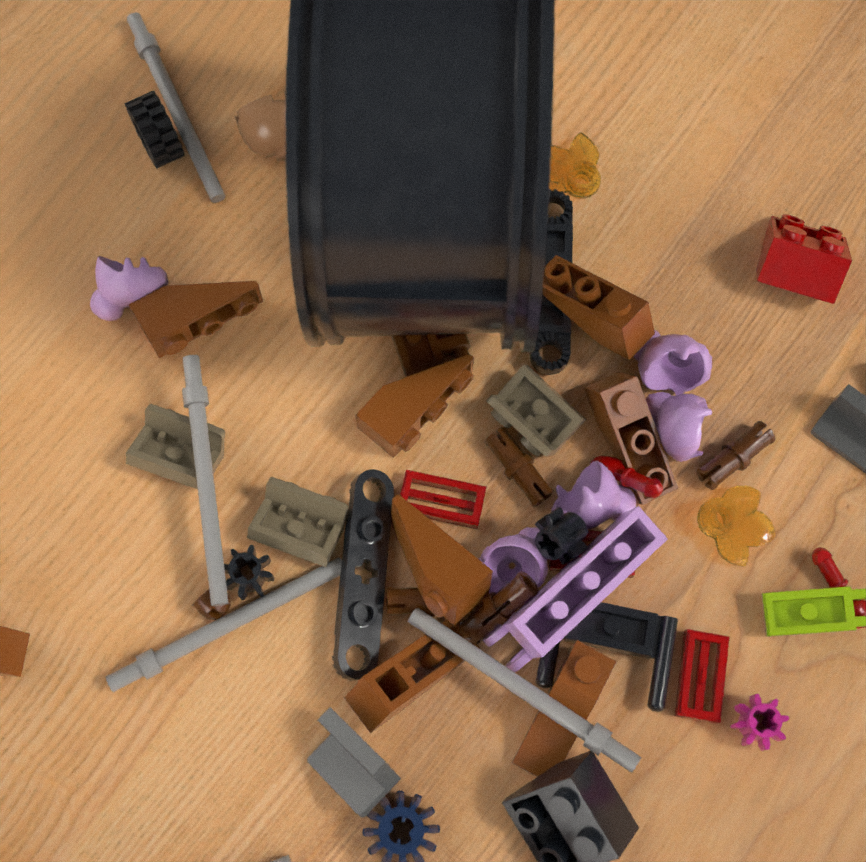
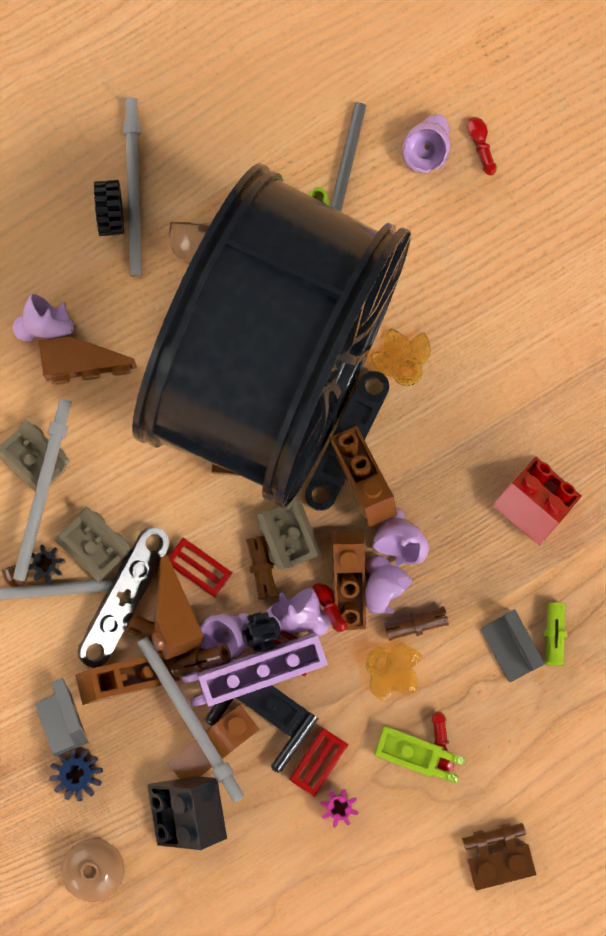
camera: 25 degrees right, 10 degrees up
(404, 406) = (201, 492): dark orange slope -> none

